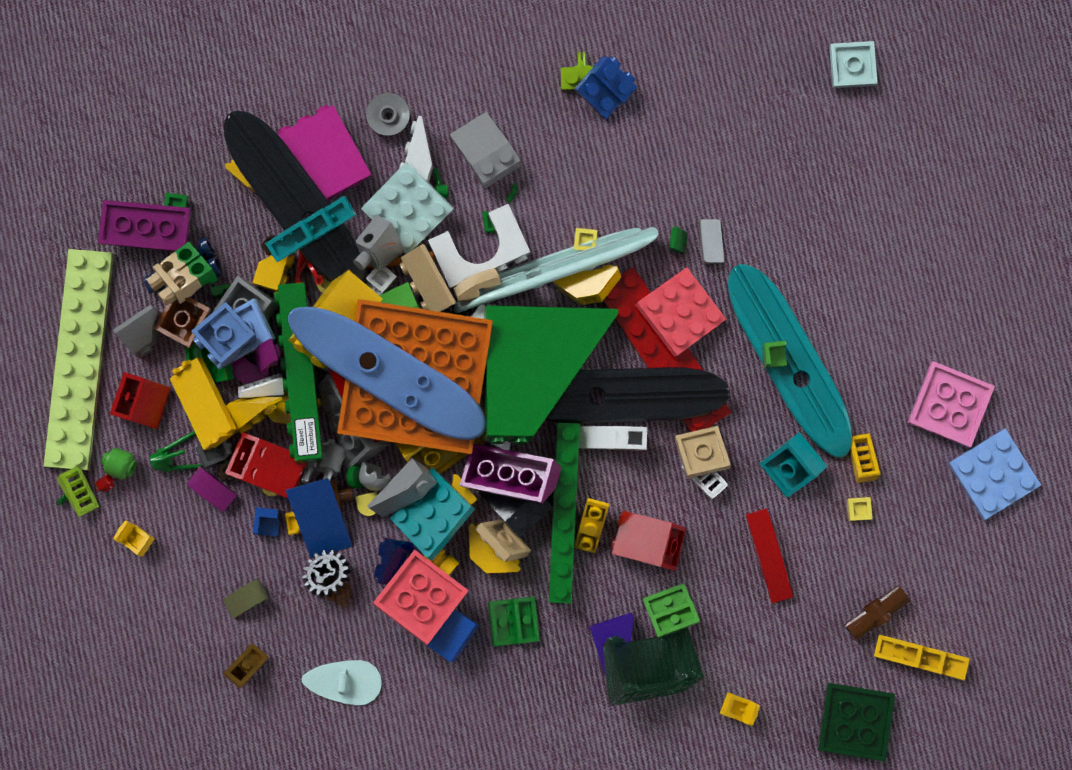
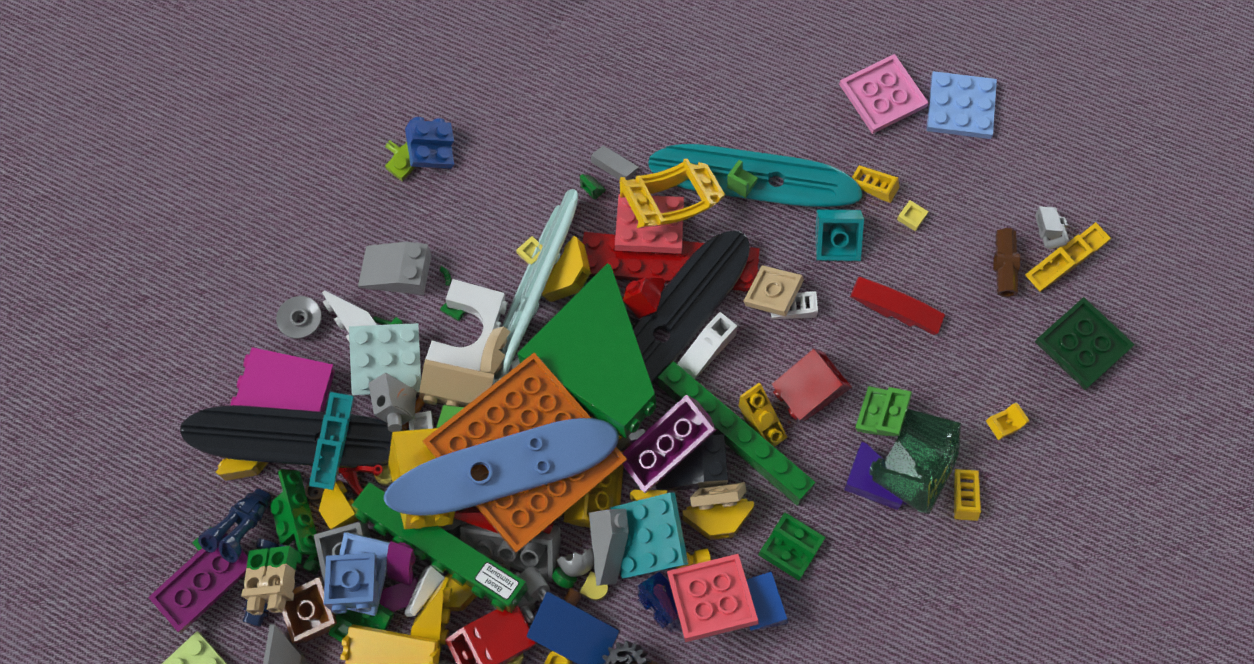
camera: 50 degrees left, 15 degrees down
(216, 213) = (244, 513): none -> dark blue piece
(243, 245) = (293, 513): none -> green bracket
(614, 359) = (644, 295): none -> red slope
(656, 731) = (966, 509): none -> yellow slope
(687, 295) = (639, 192): none -> yellow wedge
(936, 627) = (1051, 227): none -> light grey piece

